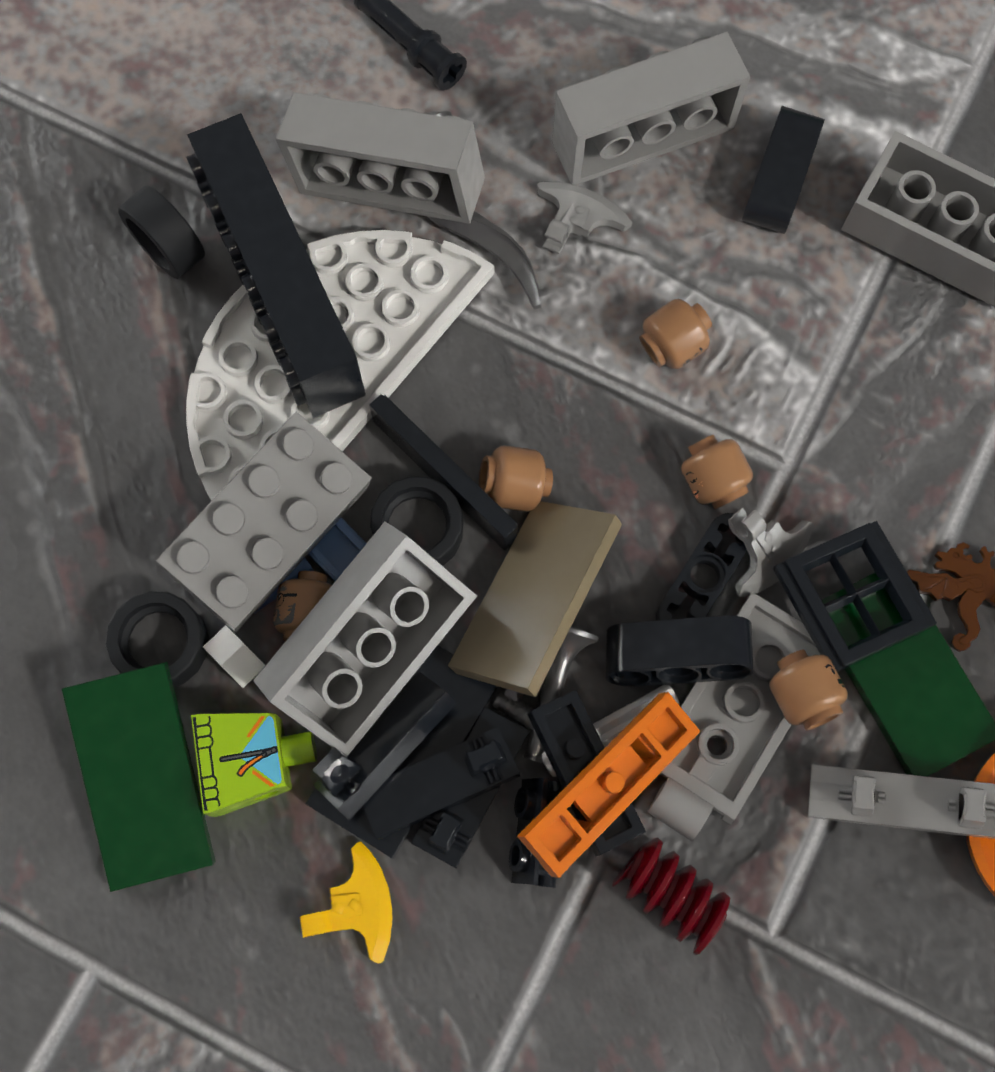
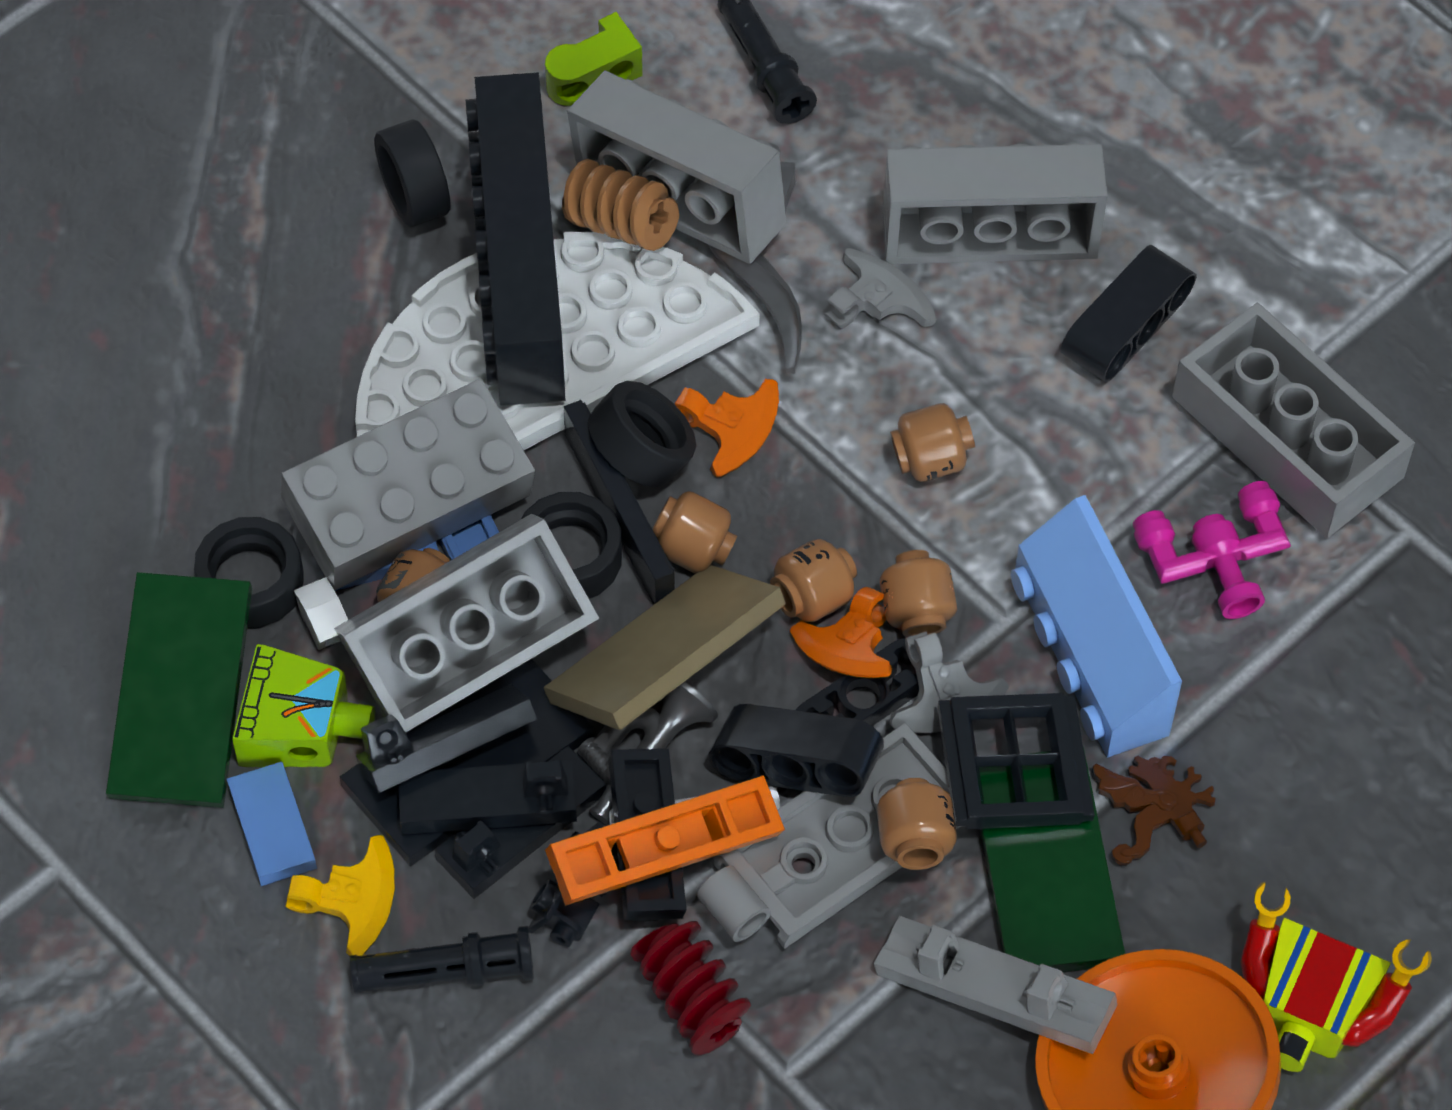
camera: 20 degrees right, 15 degrees down
(262, 865) = (271, 823): none -> medium blue tile
(268, 92) = (582, 63): none -> lime leg
(347, 207) = (620, 205): none -> medium nougat piece
(430, 422) = (642, 433): none -> black tyre
(478, 936) = (473, 959): none -> black pin
(506, 364) = (735, 422): none -> orange piece
(630, 488) = (815, 580): none -> medium nougat head
(677, 534) = (850, 642): none -> orange piece
(877, 456) = (1097, 630): none -> light blue slope
(931, 348) = (1218, 547): none -> dark pink piece

